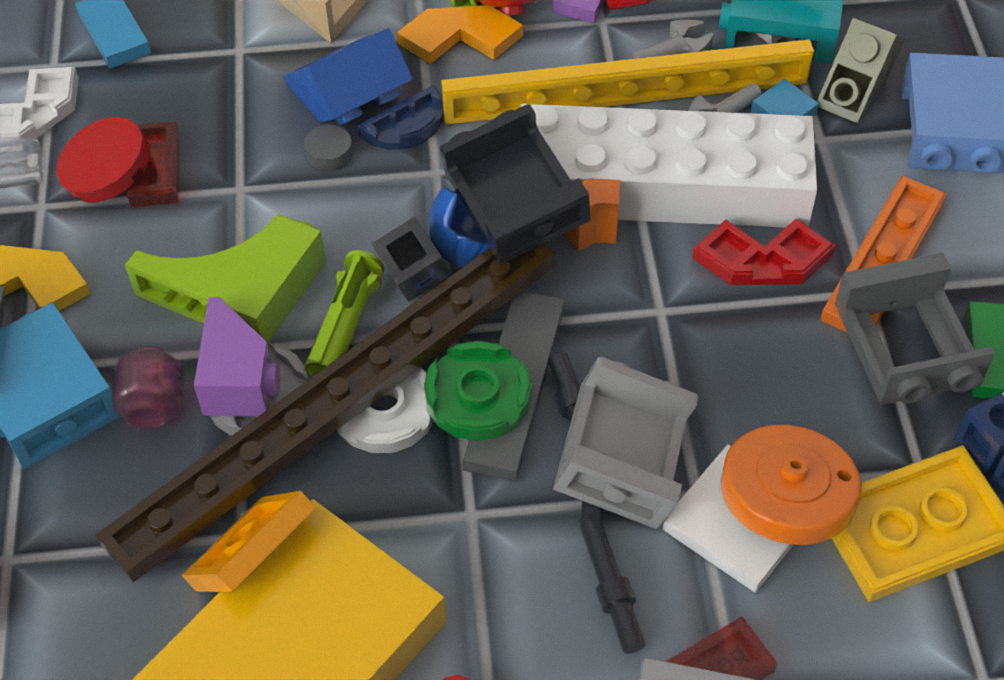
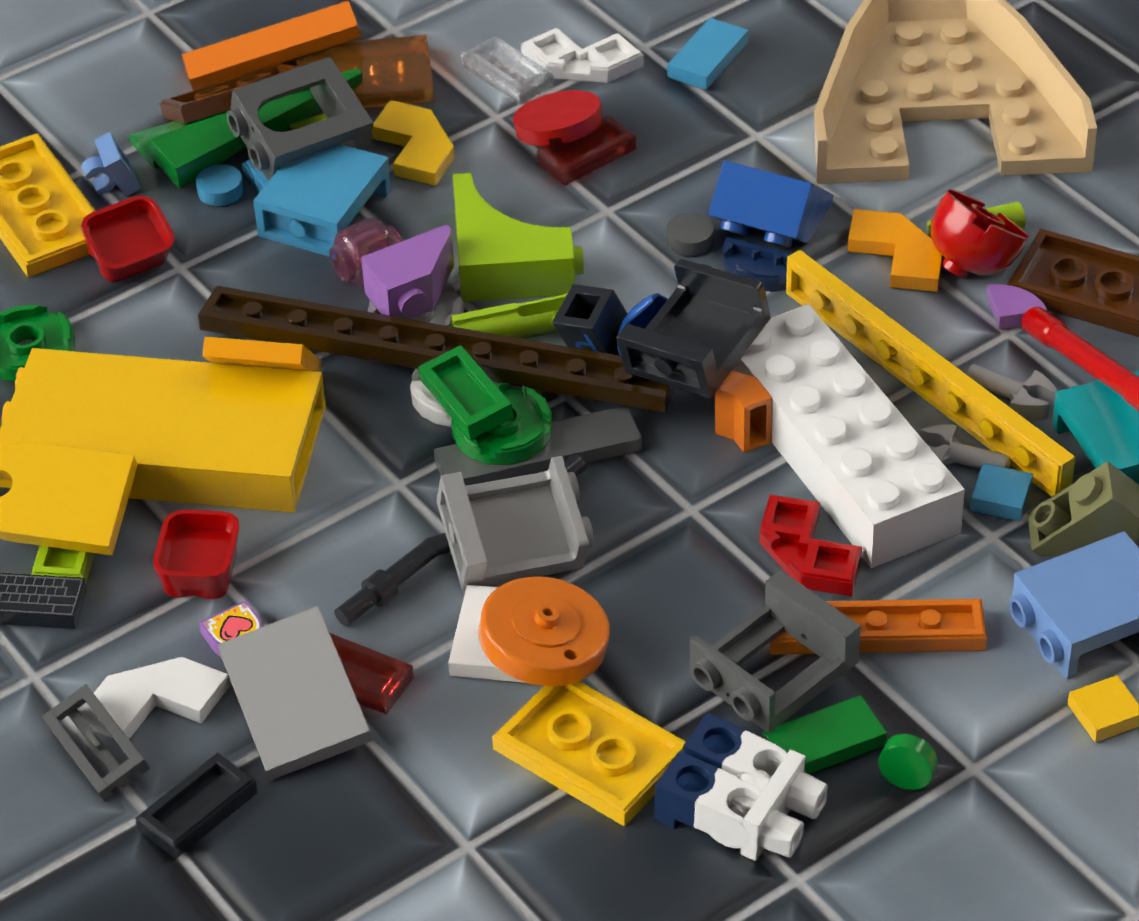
camera: 60 degrees right, 10 degrees down
(437, 394) = (465, 392): none -> green tile

